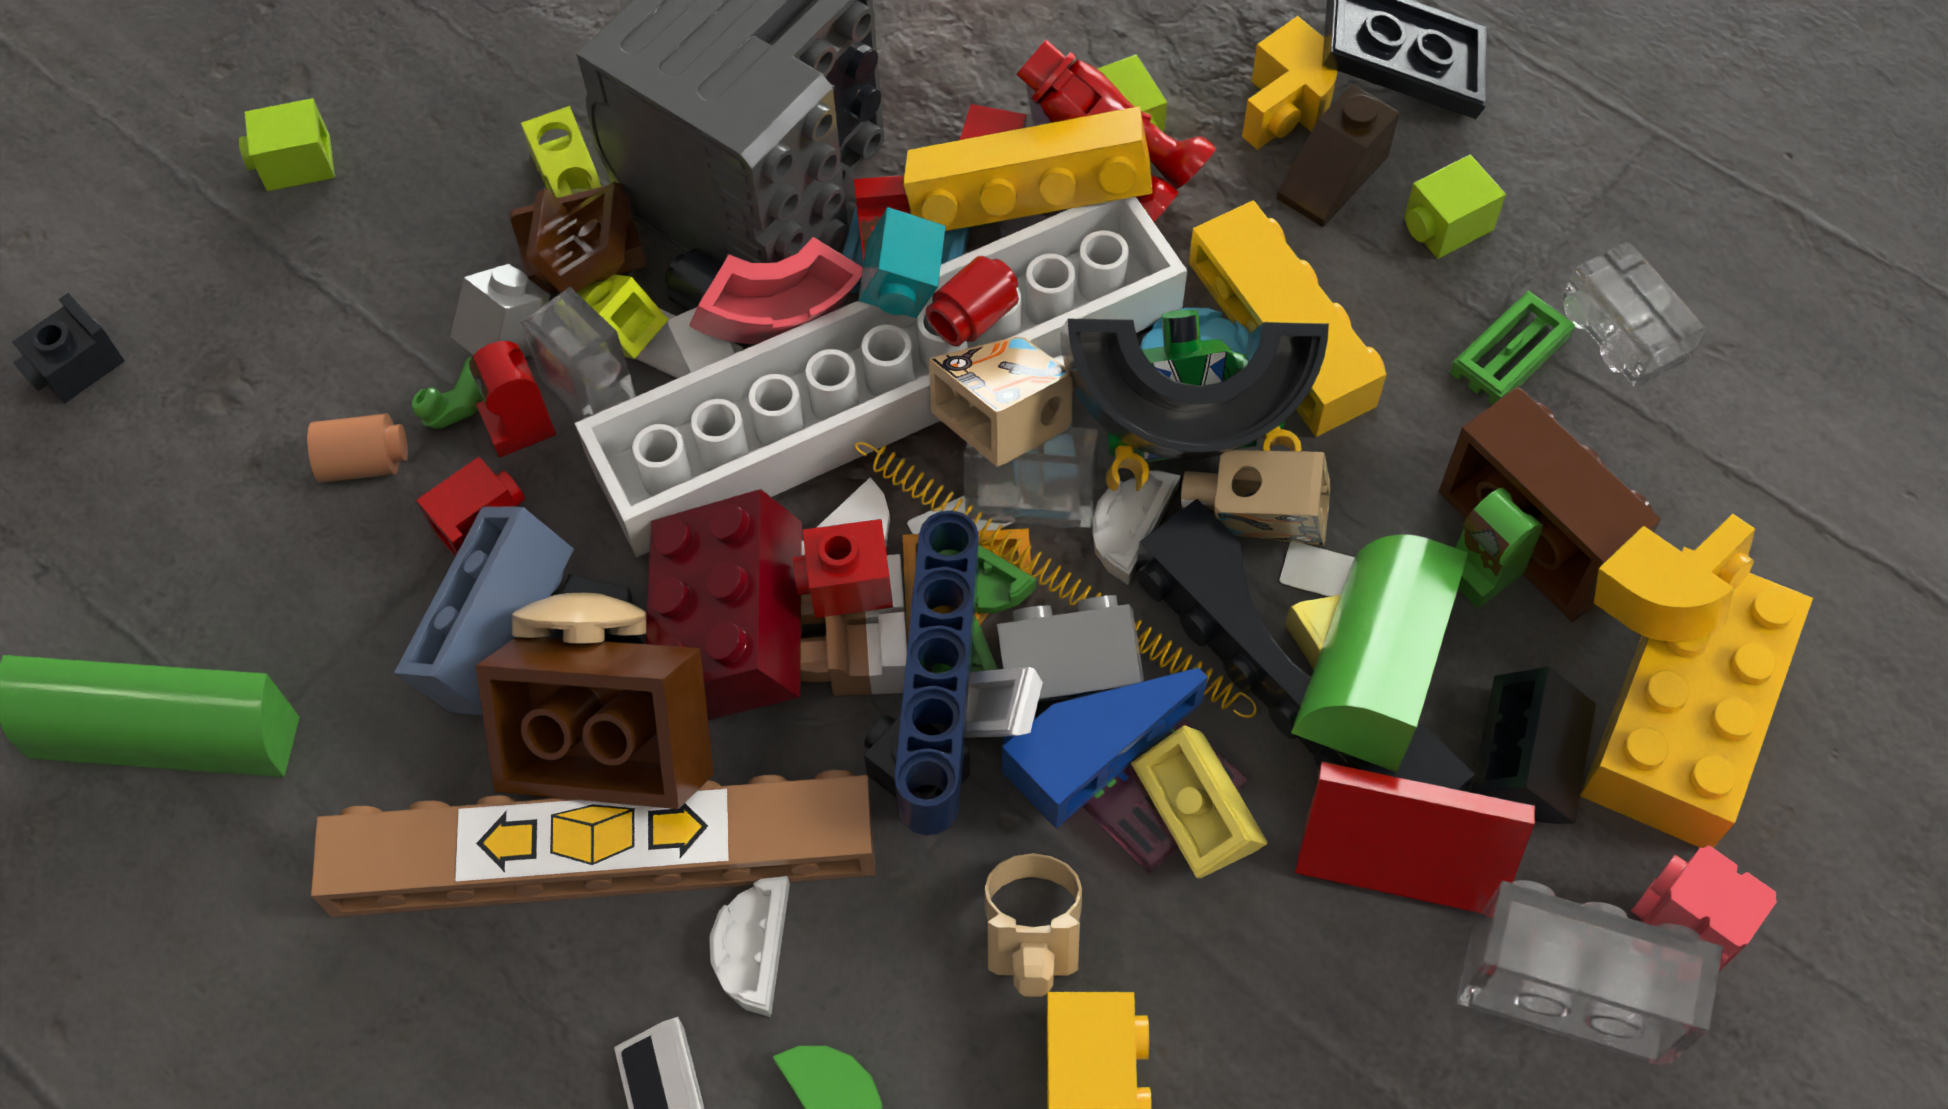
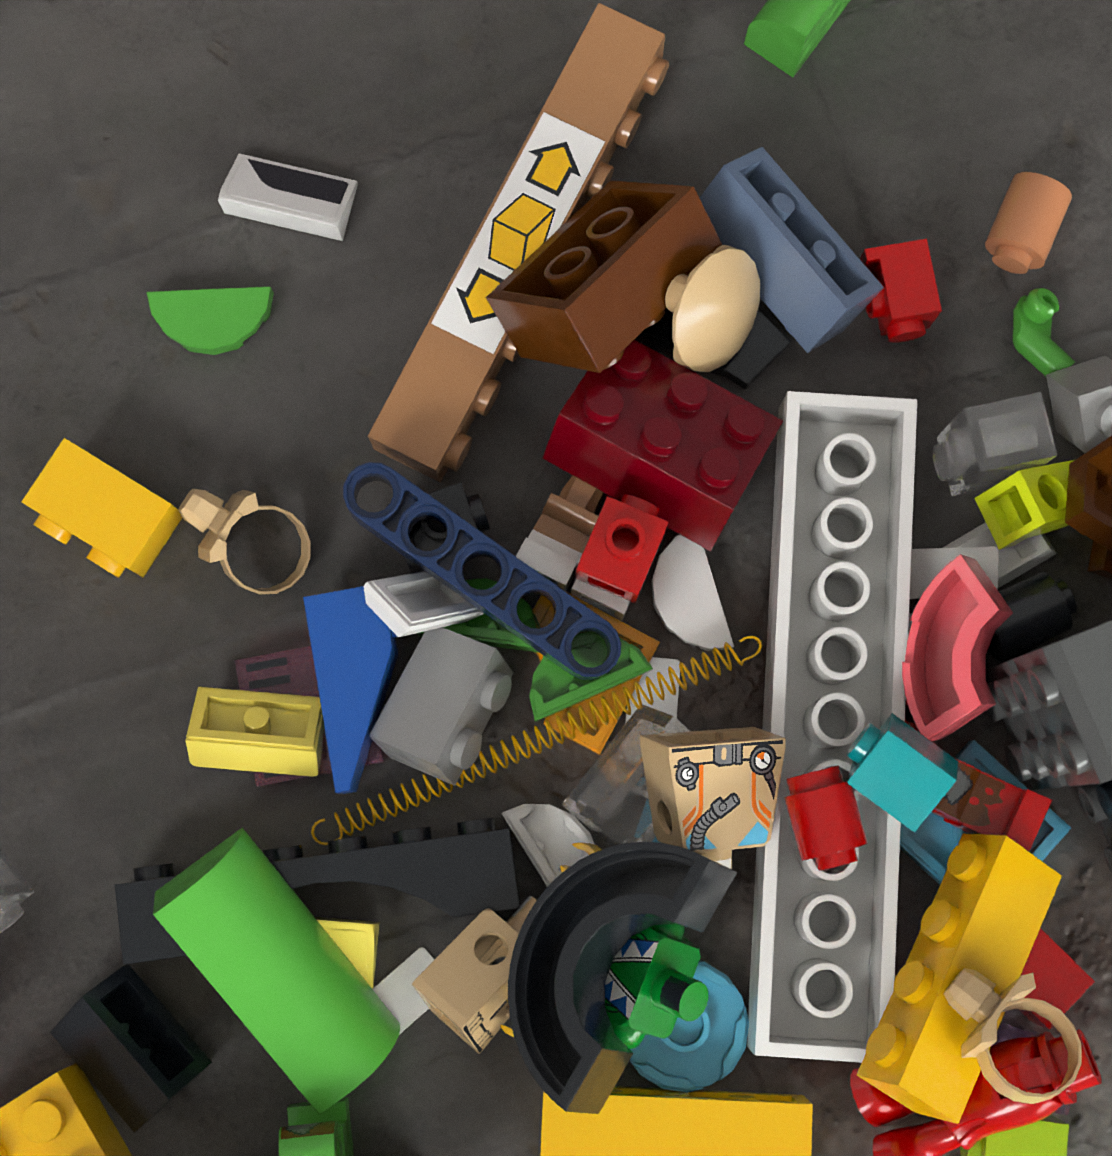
camera: 120 degrees right, 20 degrees up
(511, 398) = (994, 368): red leg -> none
(748, 944) = (373, 318): white tile -> none
(1047, 112) = (974, 997): none -> tan piece
(1412, 837) = (103, 875): red tile -> none

